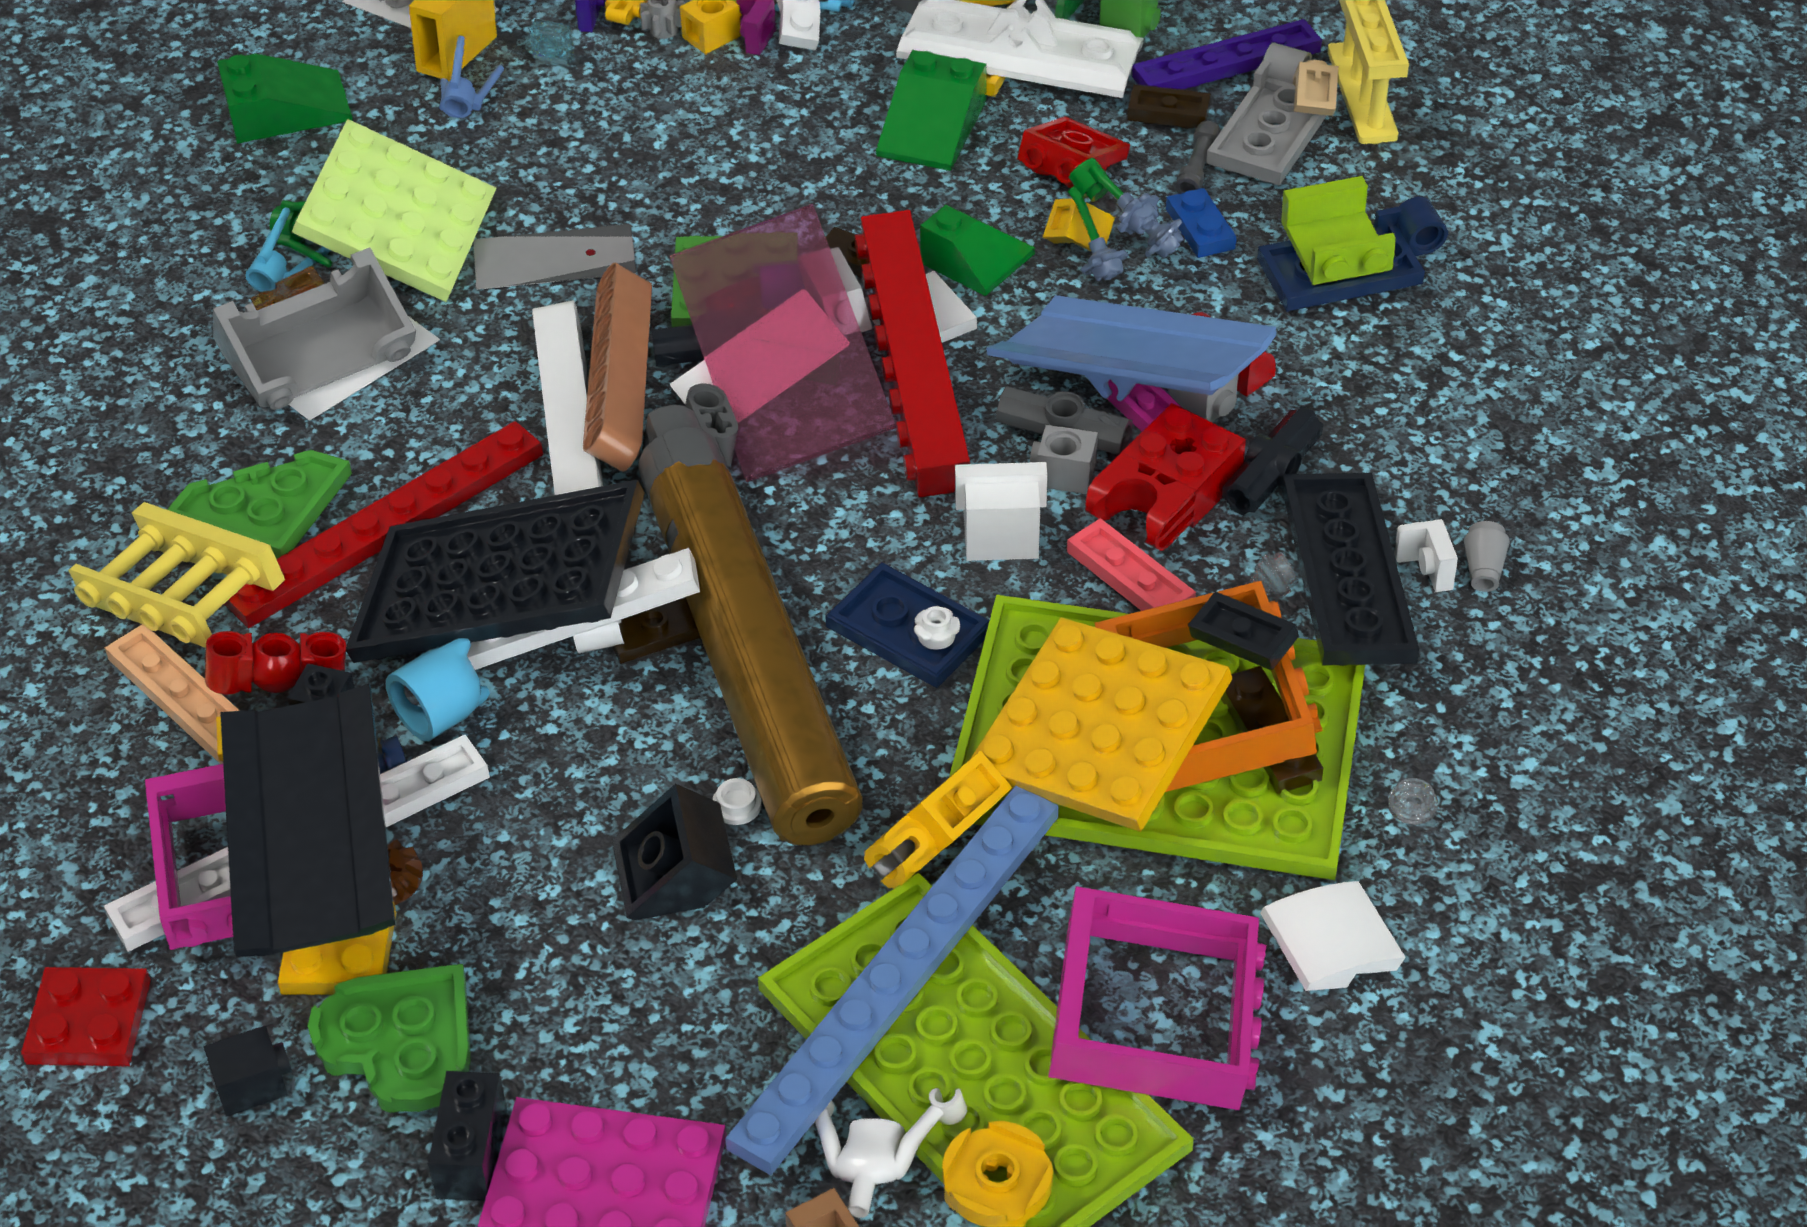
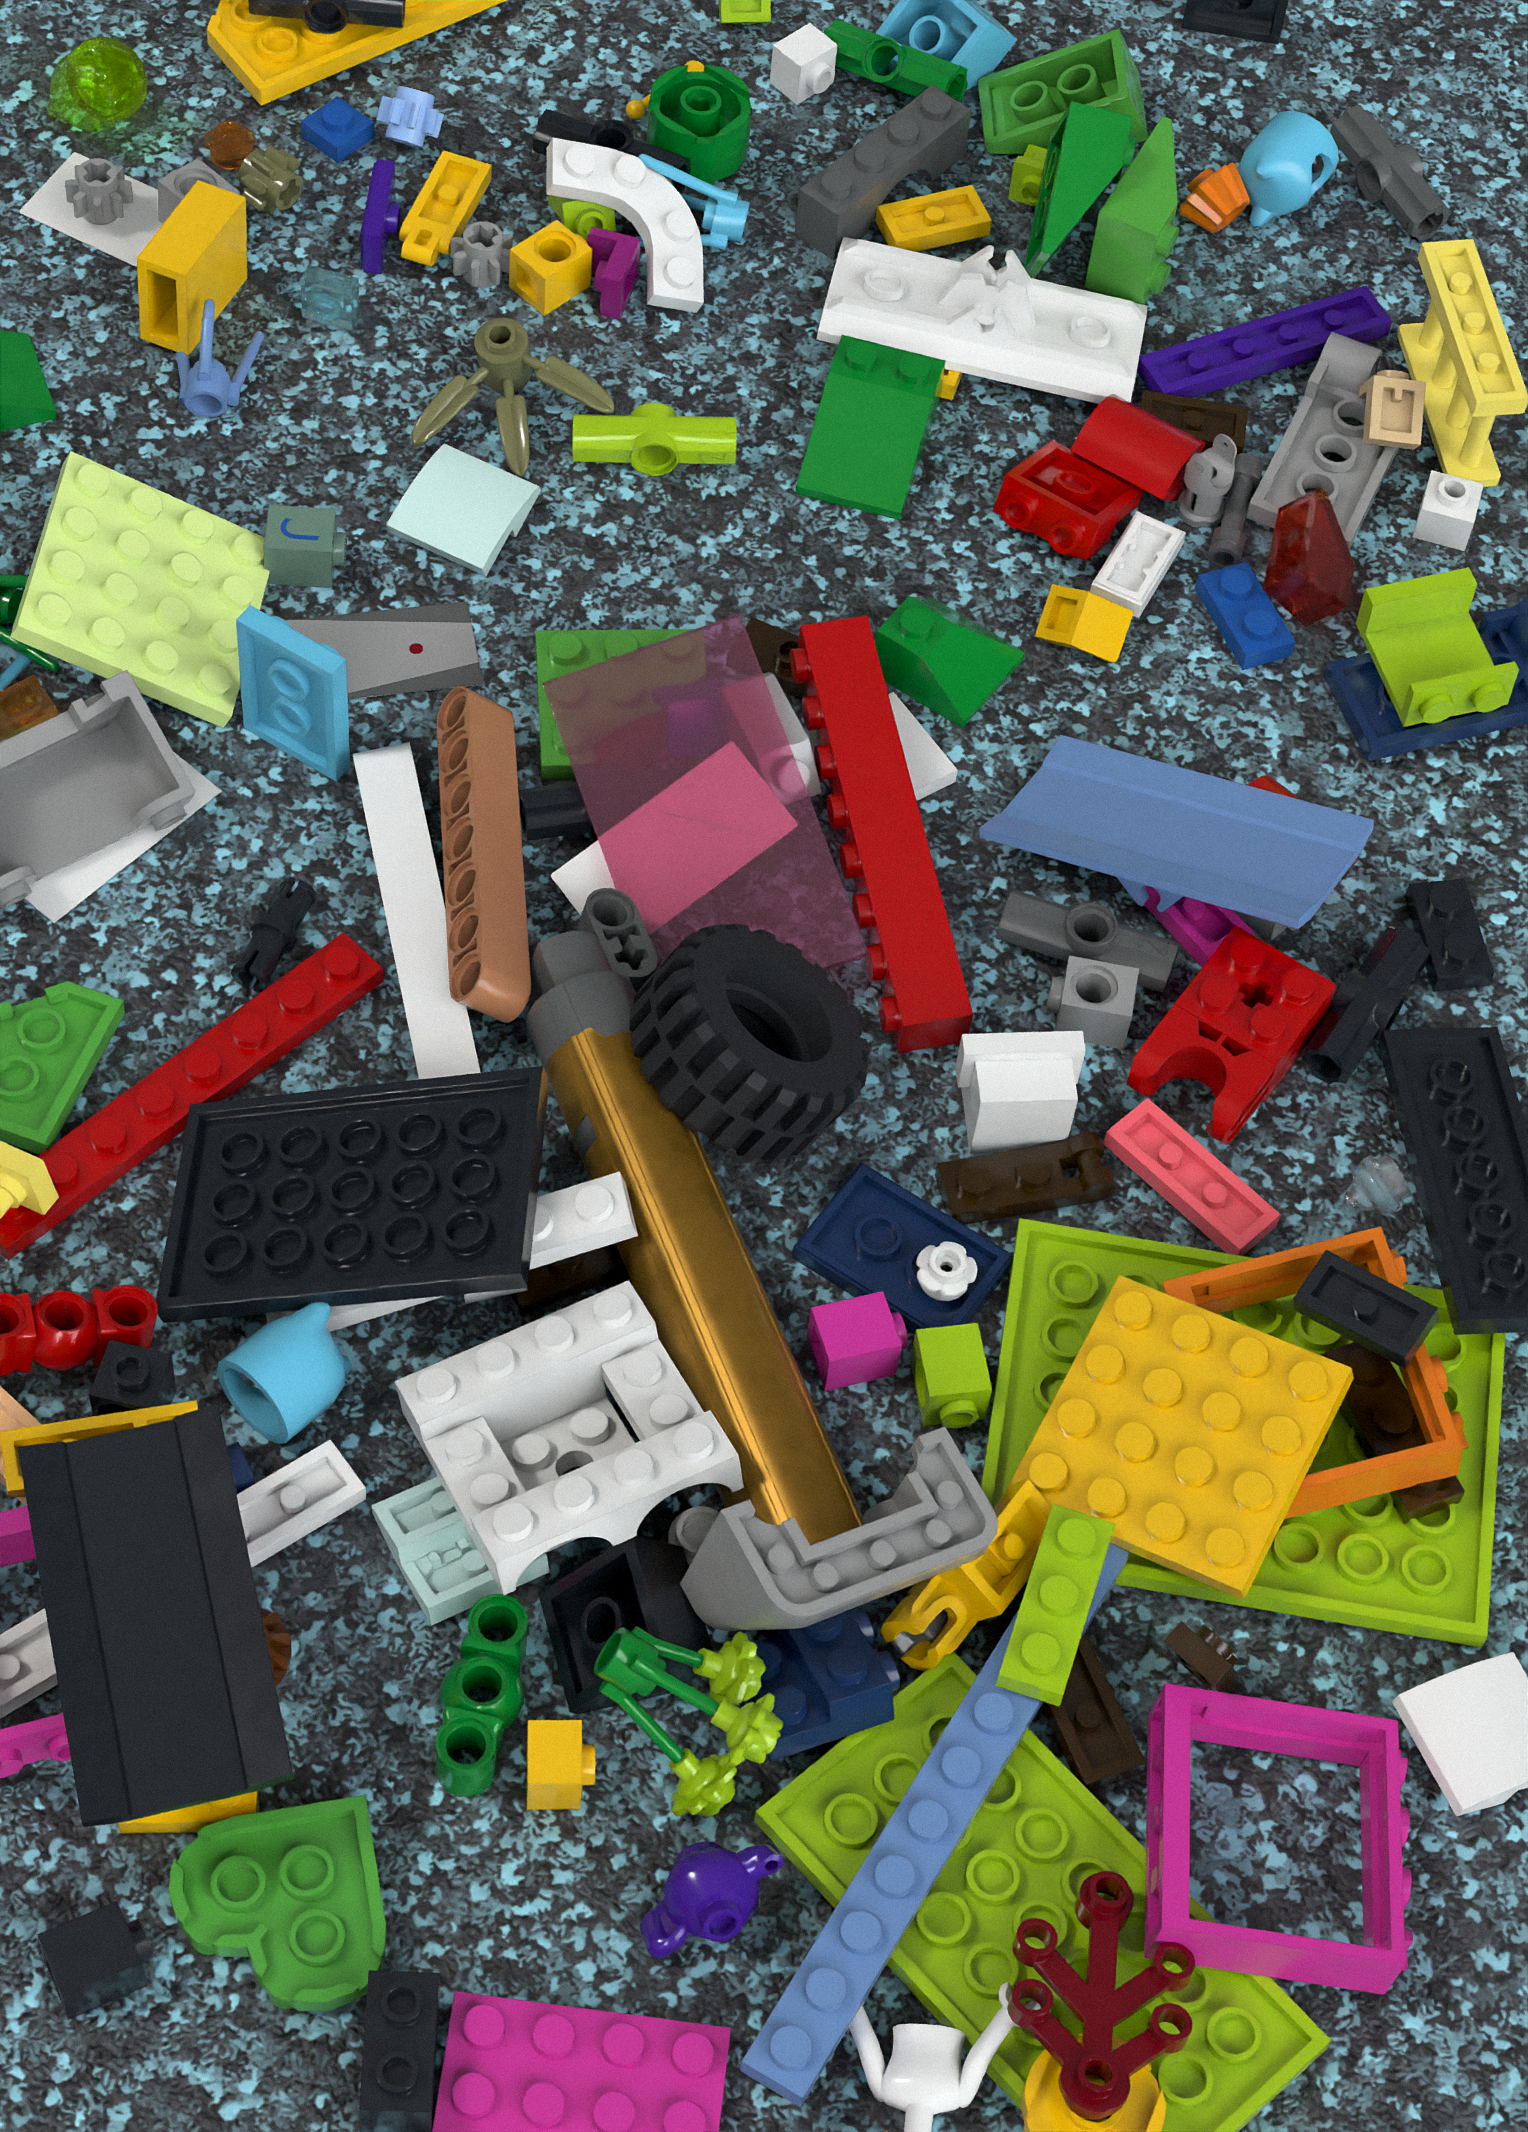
camera: 10 degrees left, 10 degrees up
(465, 423) = (274, 934): none -> black pin
(490, 264) = (294, 692): none -> medium azure plate
(513, 188) = (303, 546): none -> sand green brick
(556, 803) = (438, 1551): none -> light aqua slope
(558, 901) = (481, 1723): none -> green piece
(610, 947) = (557, 1764): none -> yellow plate
(617, 725) = (536, 1403): none -> white piece
(632, 166) = (463, 508): none -> light aqua slope
(673, 82) = (506, 368): none -> olive plant
(715, 1032) = (707, 1895): none -> dark purple piece
(742, 891) = (632, 1665): none -> plant
(774, 121) = (654, 439): none -> lime piece
(774, 806) = (774, 1579): none -> light grey windscreen
(796, 471) = (748, 1042): none -> black tyre
(813, 892) = (826, 1681): none -> dark blue plate
(865, 673) = (855, 1340): none -> dark pink brick
(935, 695) = (950, 1375): none -> lime brick
(994, 833) = (1055, 1605): none -> lime plate
(995, 1146) = (1097, 2001): none -> dark red plant
(1006, 574) = (1024, 1180): none -> dark brown plate
(1023, 924) = (1091, 1723): none -> dark brown plate
(1106, 868) = (1205, 1657): none -> dark brown plate
(1127, 117) = (1137, 447): none -> red brick
(1128, 177) = (1138, 563): none -> white plate
(1138, 216) = (1176, 632): sand blue plant -> none
(1175, 134) = (1204, 486): none -> light grey piece
(1248, 183) = (1309, 560): none -> clear red slope
(1342, 419) = (1450, 929): none -> black plate
(1357, 154) = (1448, 510): none -> white plate

